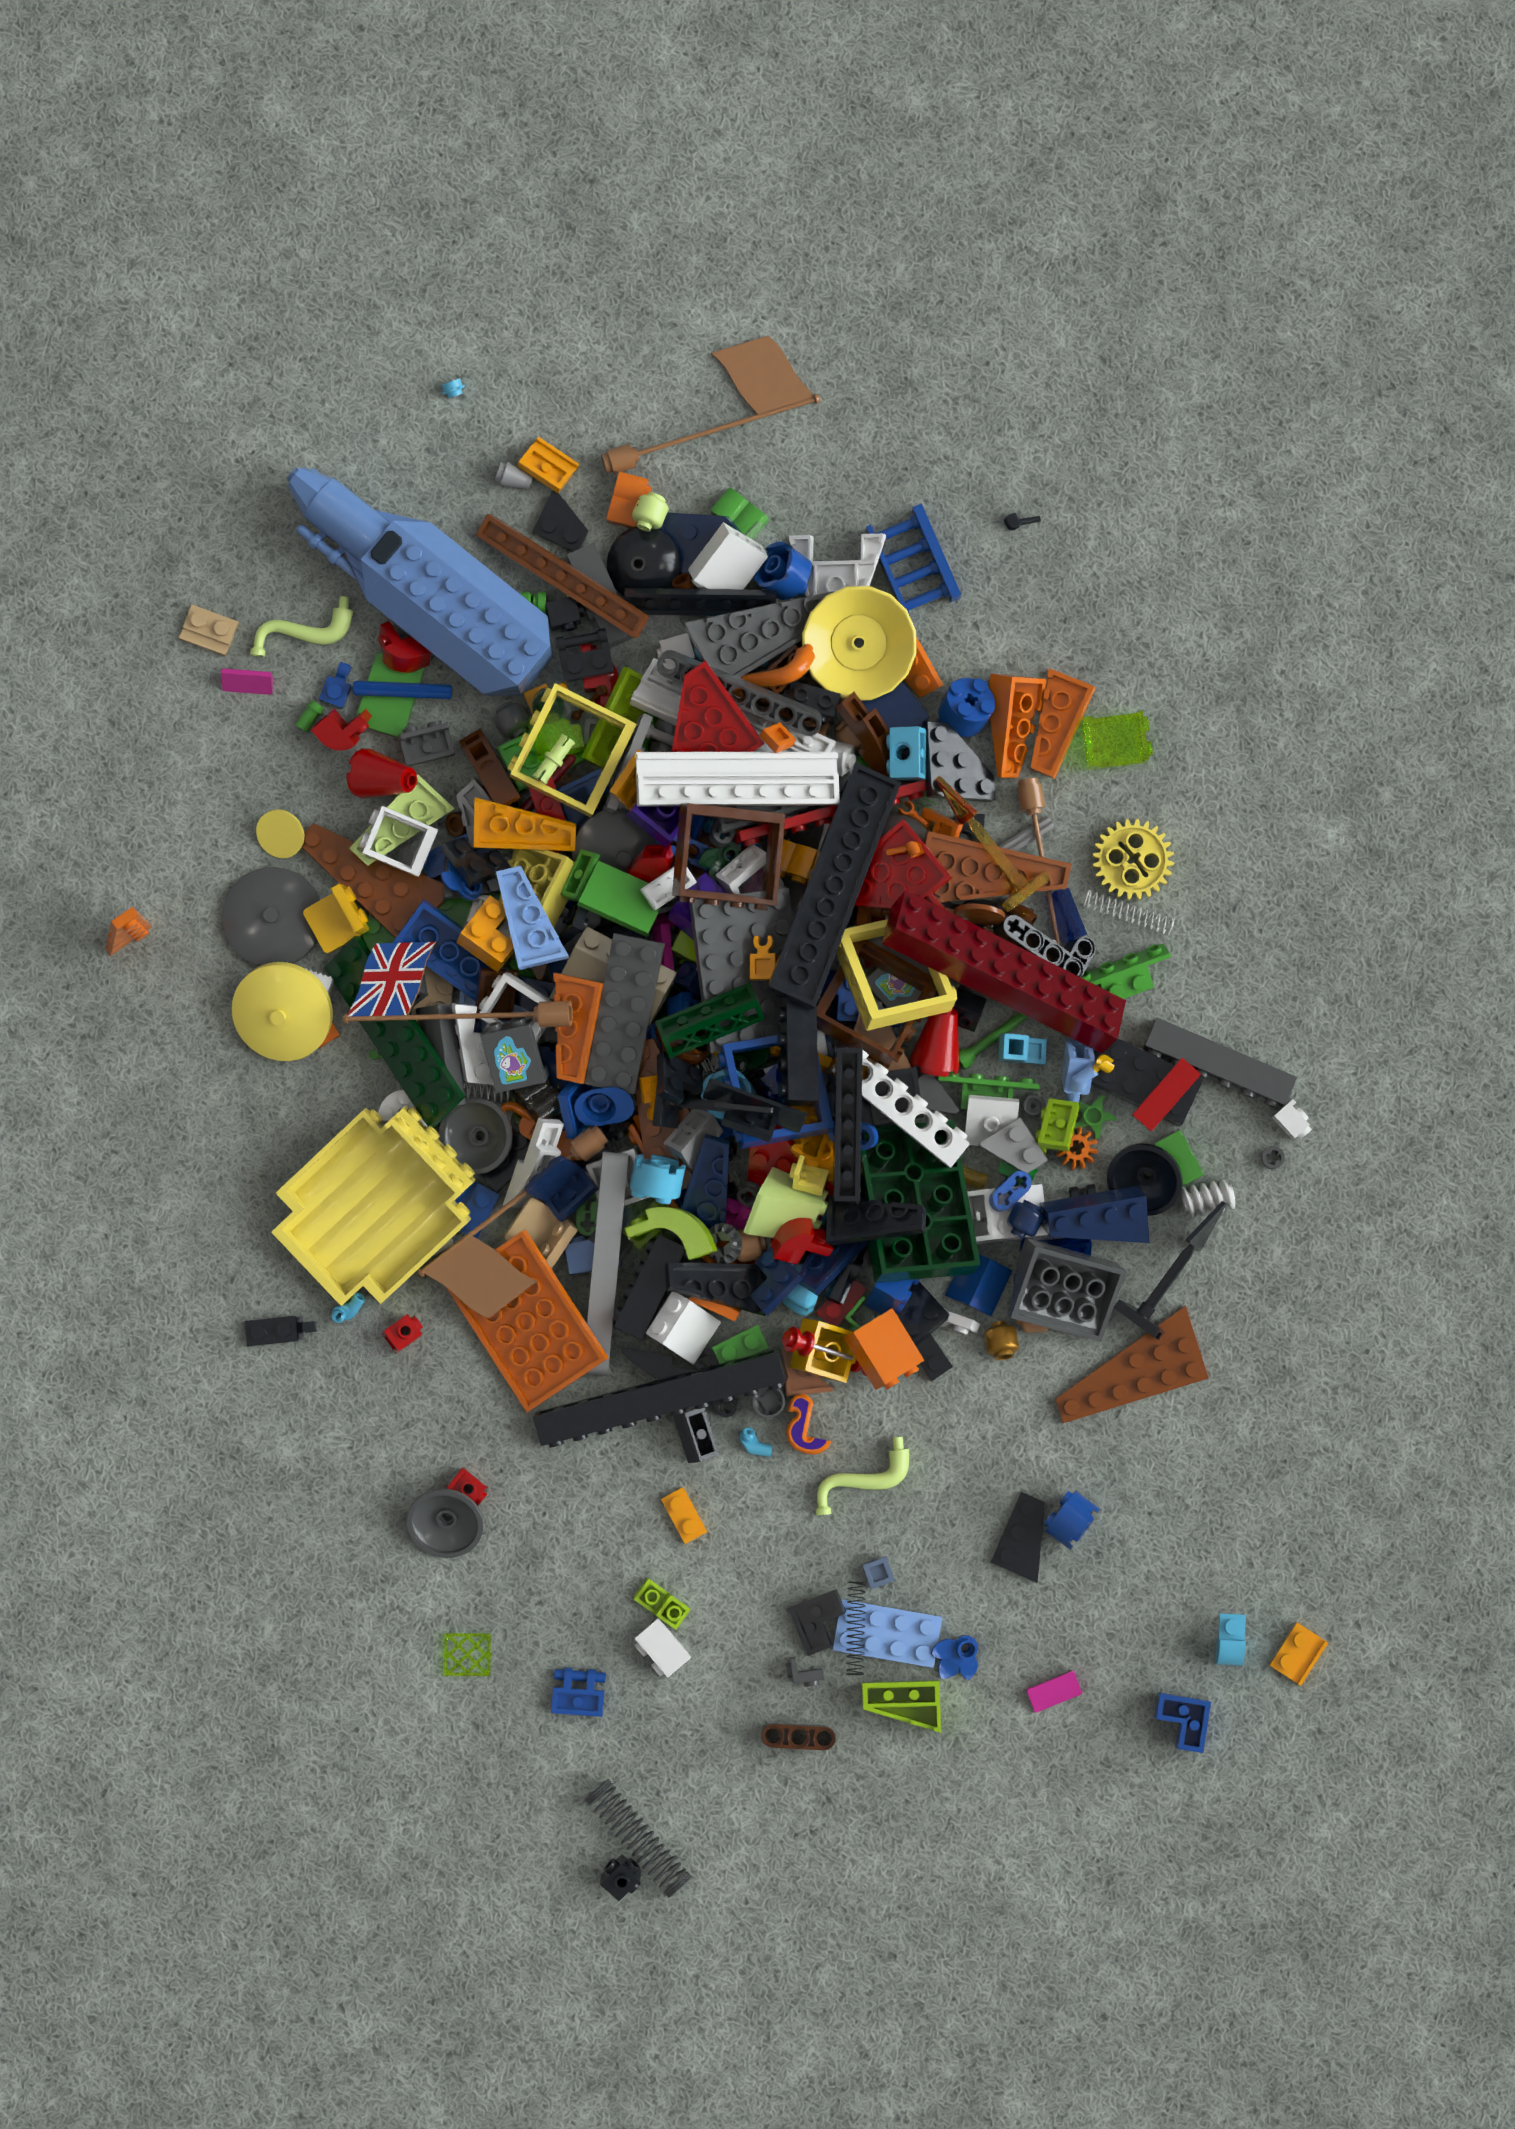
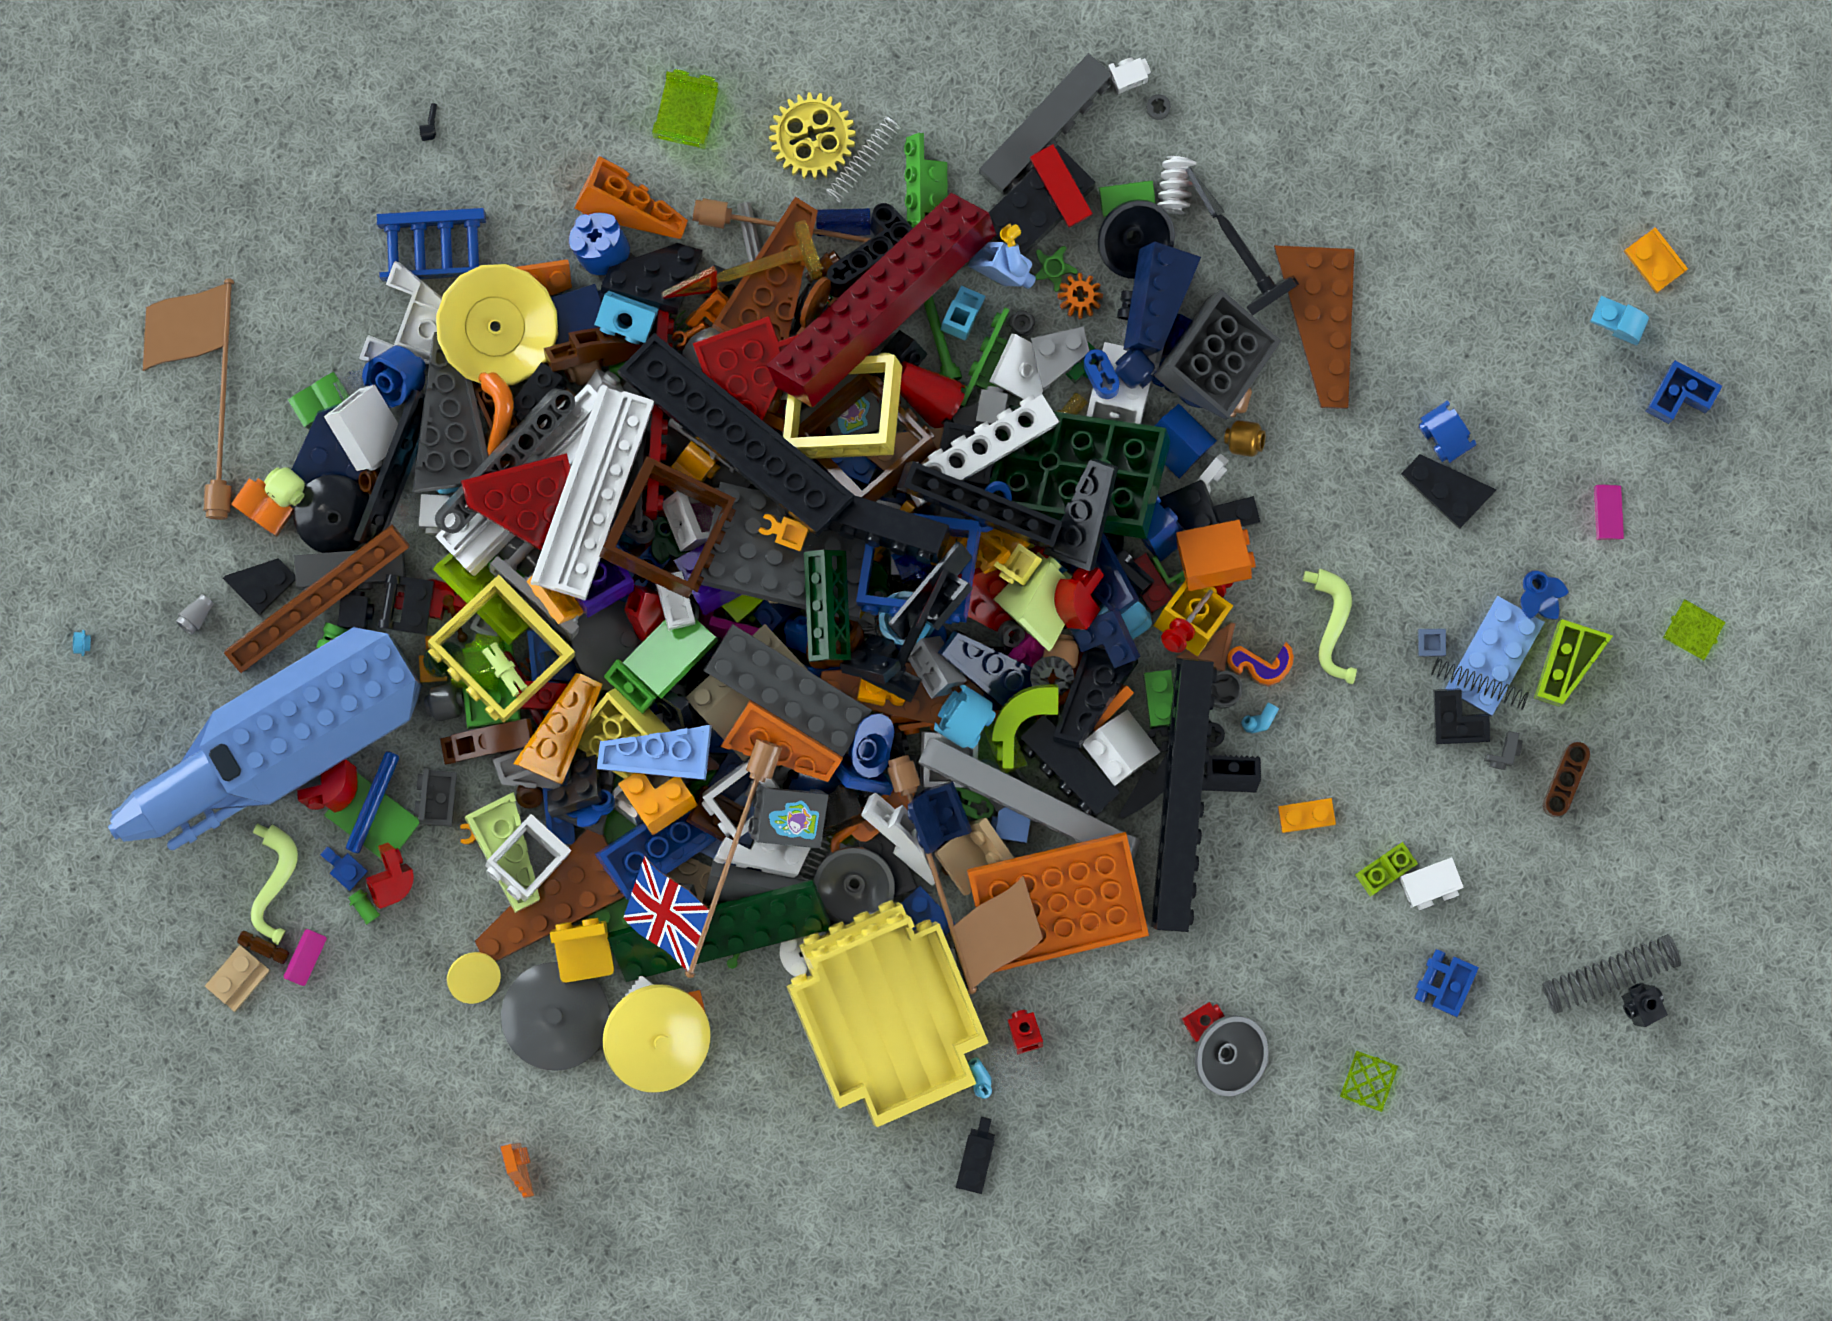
camera: 65 degrees left, 0 degrees up
(243, 642) = (263, 947): none -> reddish brown axle
(378, 775) = (452, 854): red cone -> none
(548, 465) = (196, 574): light orange plate -> none
(777, 737) = (565, 437): orange plate -> none
(913, 848) = (726, 343): orange hand -> none
(946, 1103) = (991, 404): none -> light grey brick
(975, 1805) = (1694, 629): none -> clear neon green piece
(1057, 1125) = (1052, 304): lime bracket -> none
(1060, 717) = (640, 153): orange wing -> none

